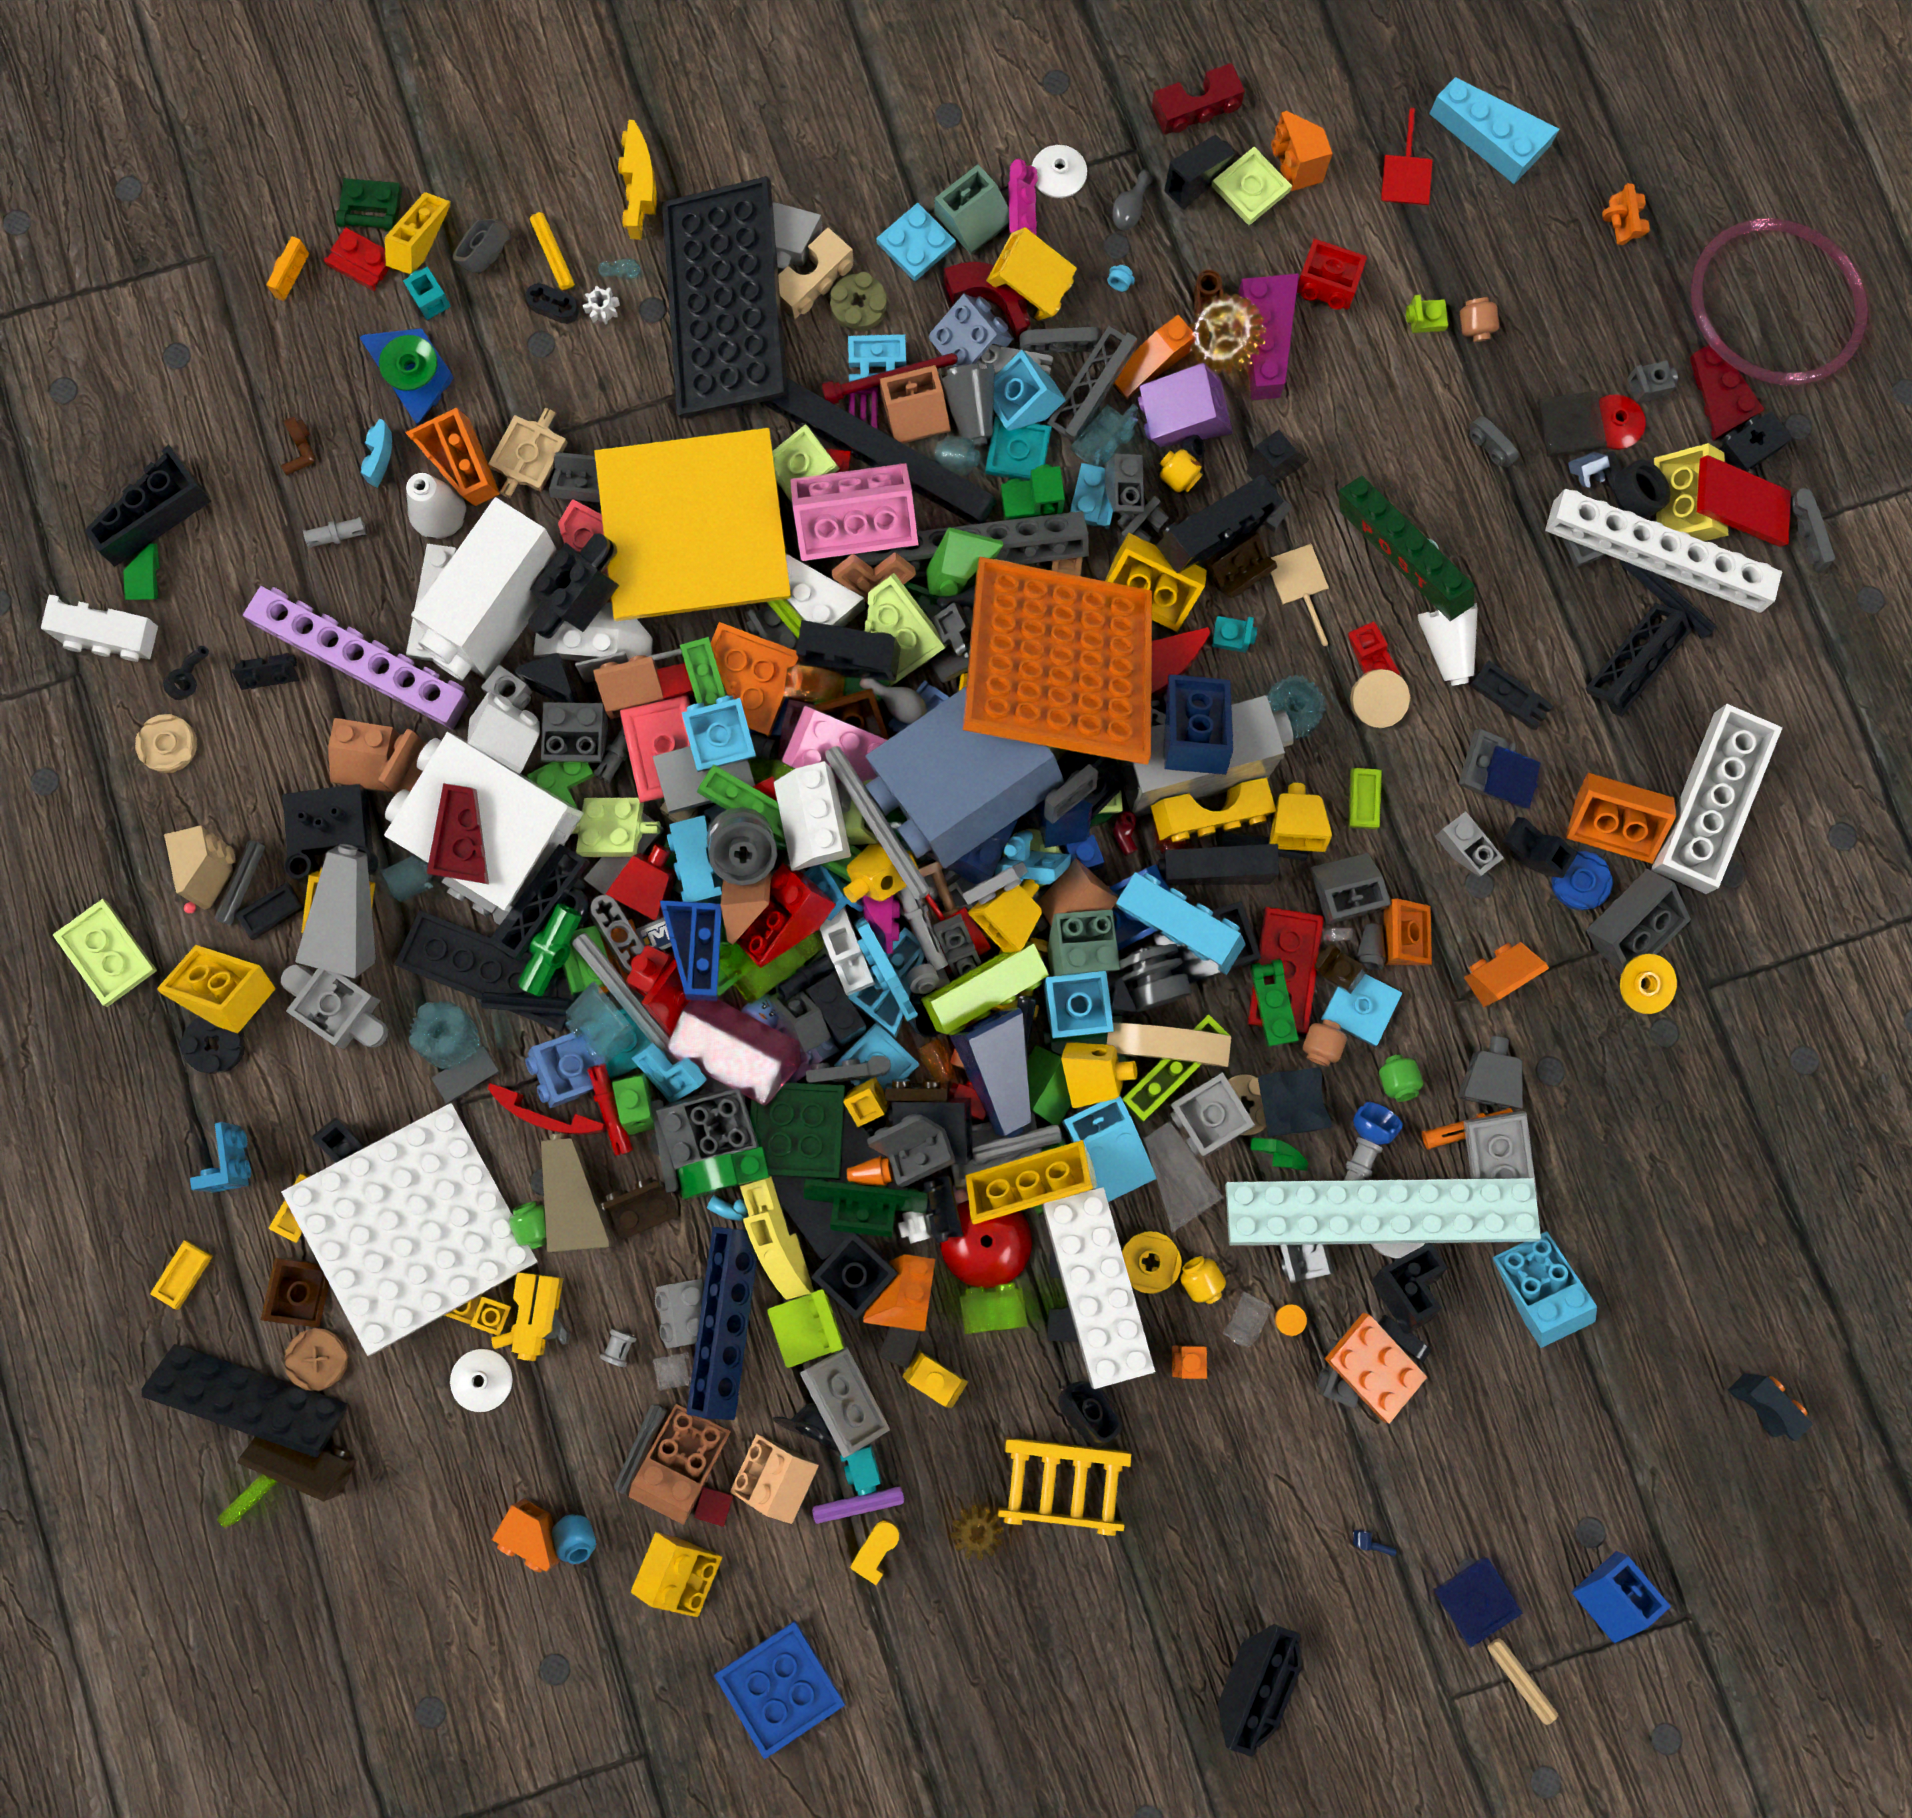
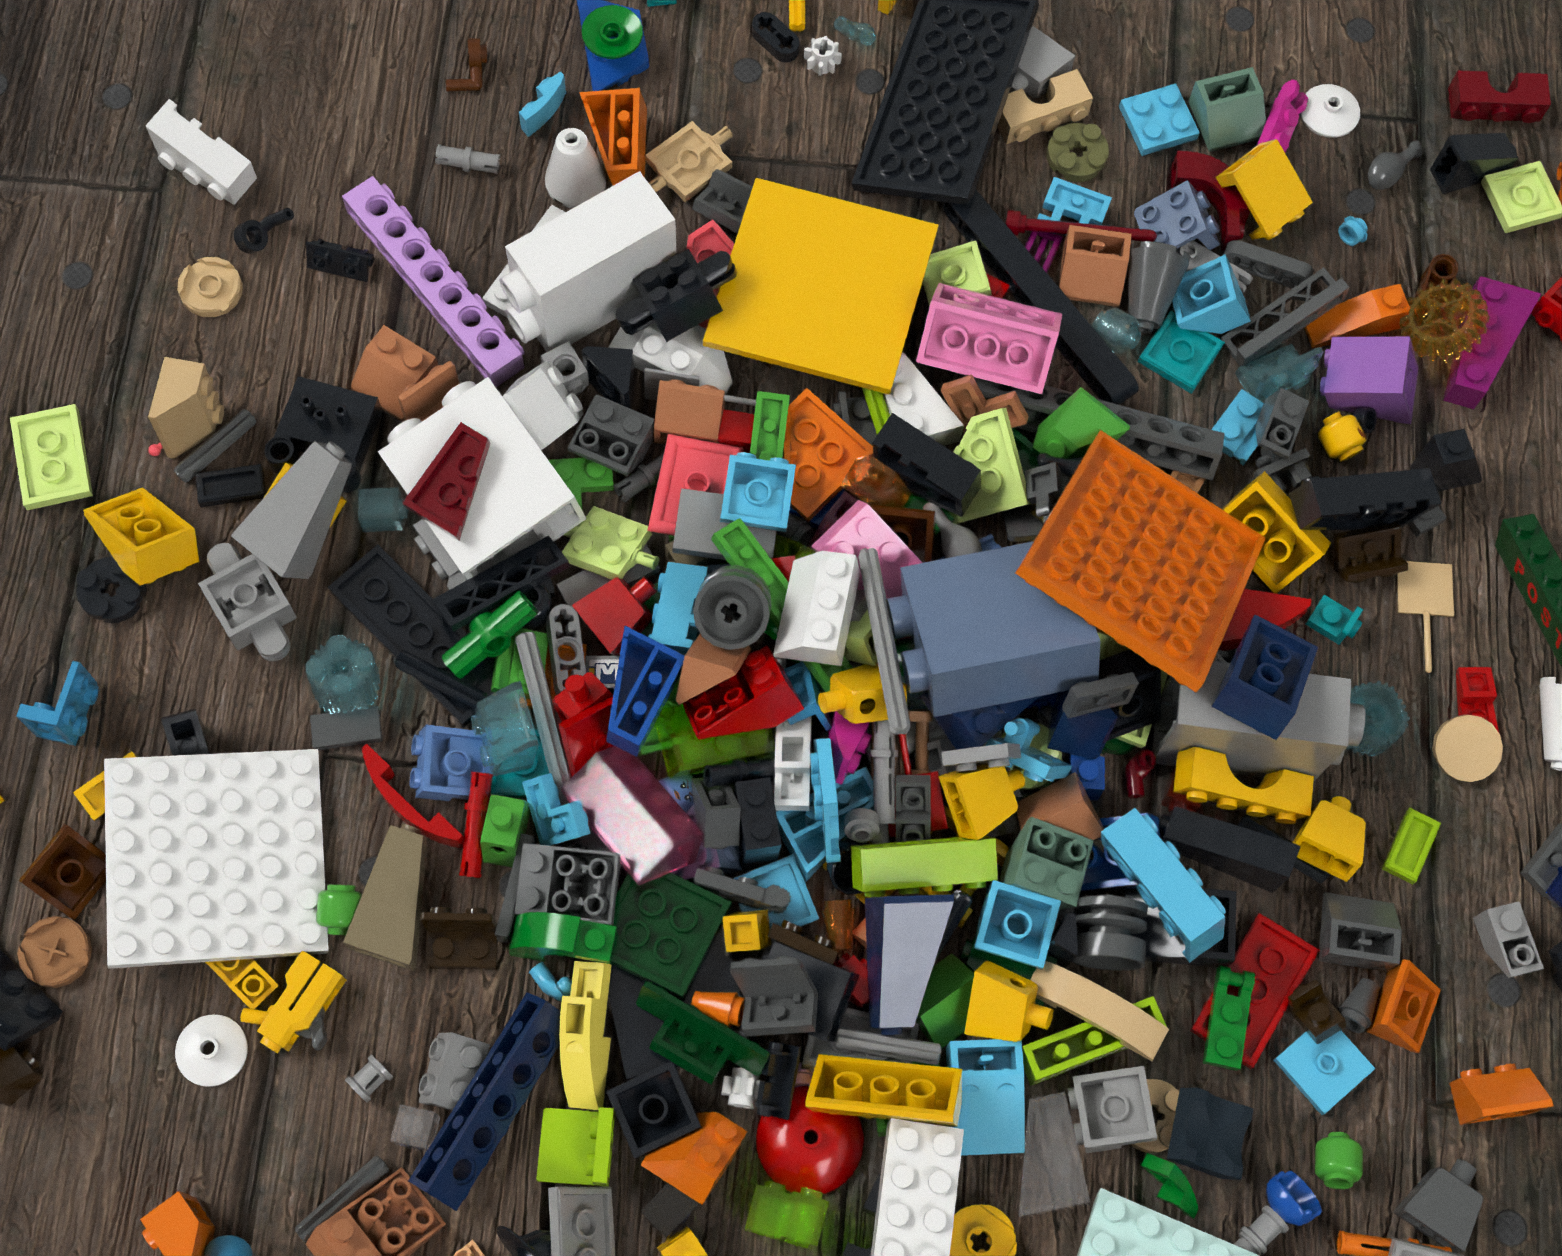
camera: 20 degrees right, 10 degrees down
(140, 575) = (264, 123): green slope -> none
(147, 508) = (300, 66): black wedge -> none
(1035, 497) = (1181, 401): green brick -> none
(1324, 1043) = (1268, 1085): nougat head -> none
(1337, 934) = (1327, 975): clear tile -> none

